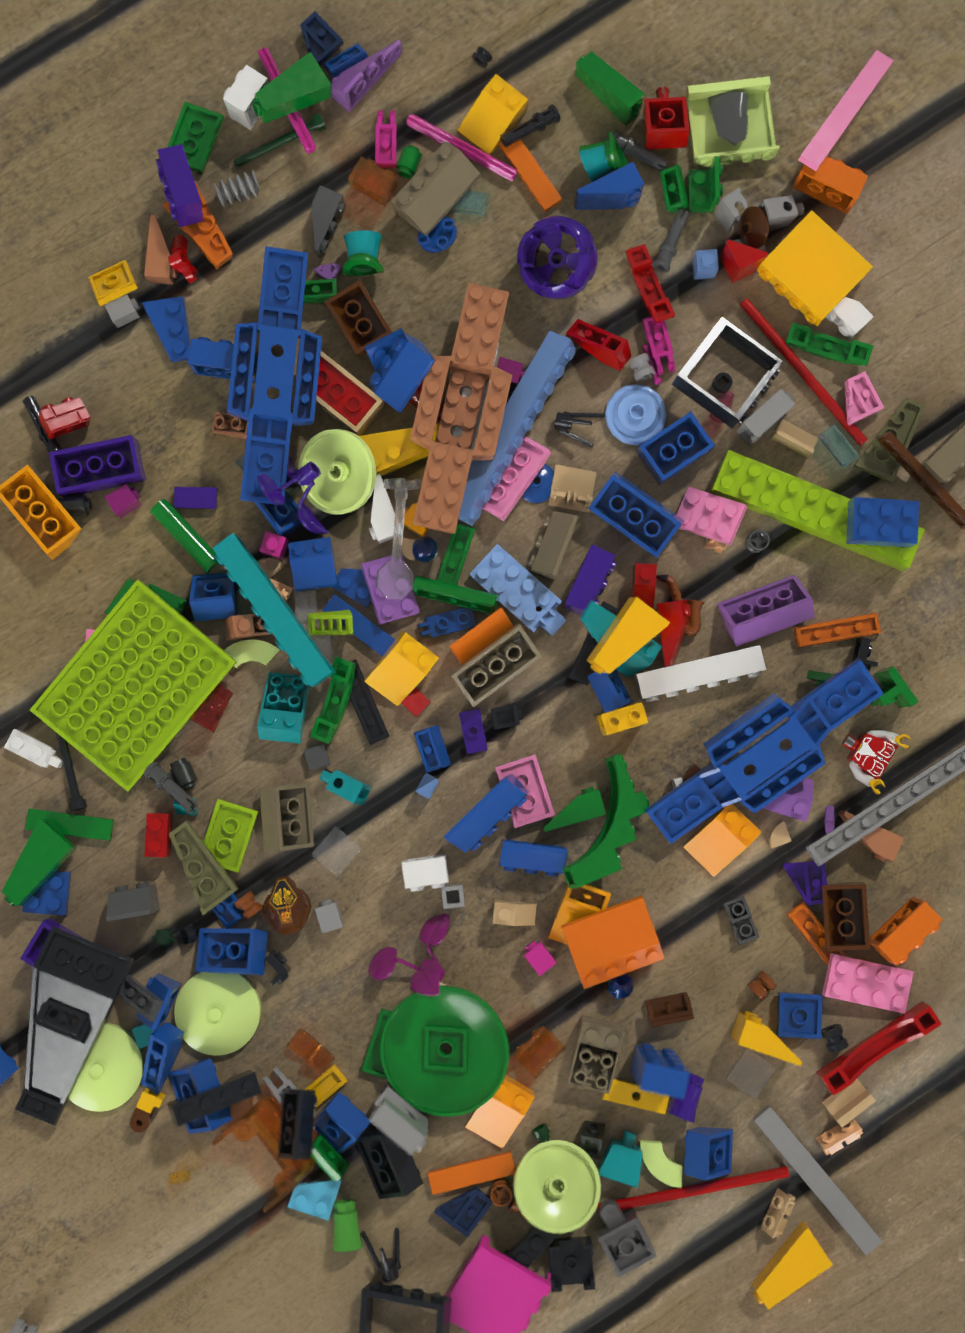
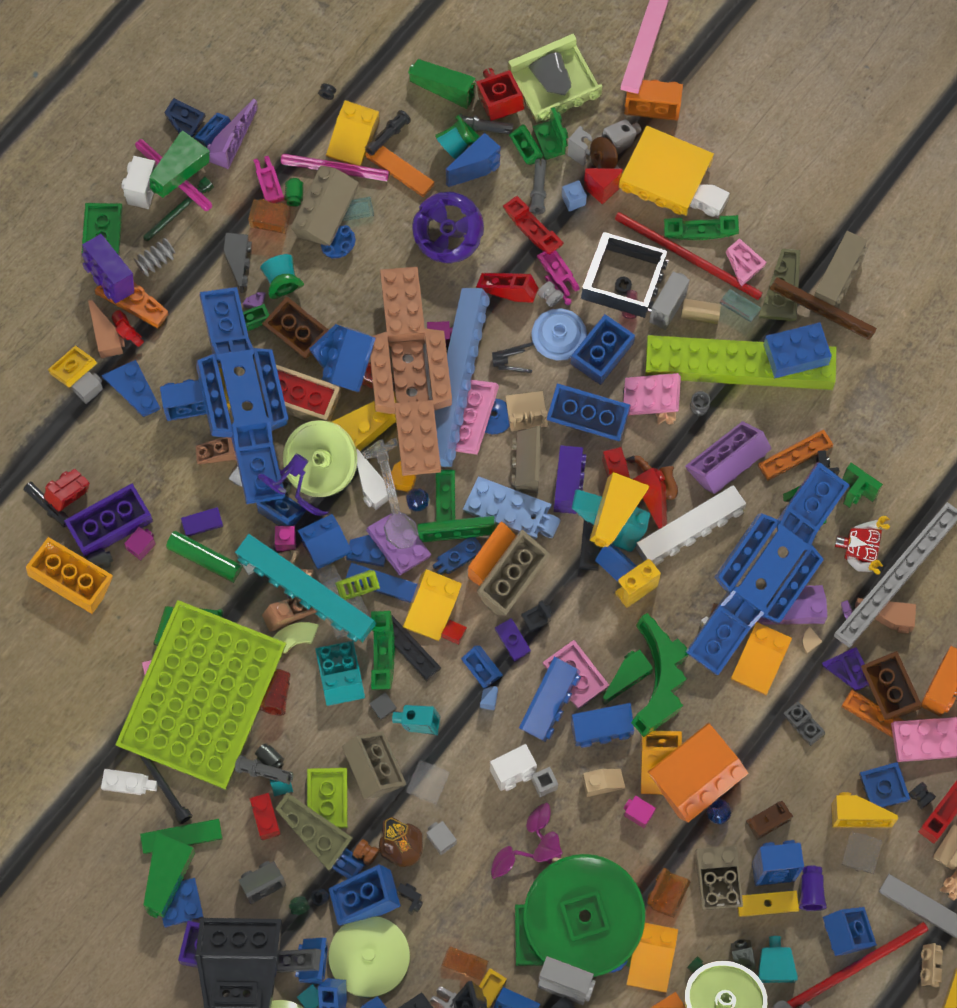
camera: 15 degrees left, 15 degrees down
(213, 597) = (246, 598): blue slope -> none
(659, 1165) = (812, 959): yellowish green tile -> none
(758, 989) = (842, 771): dark orange wheel -> none

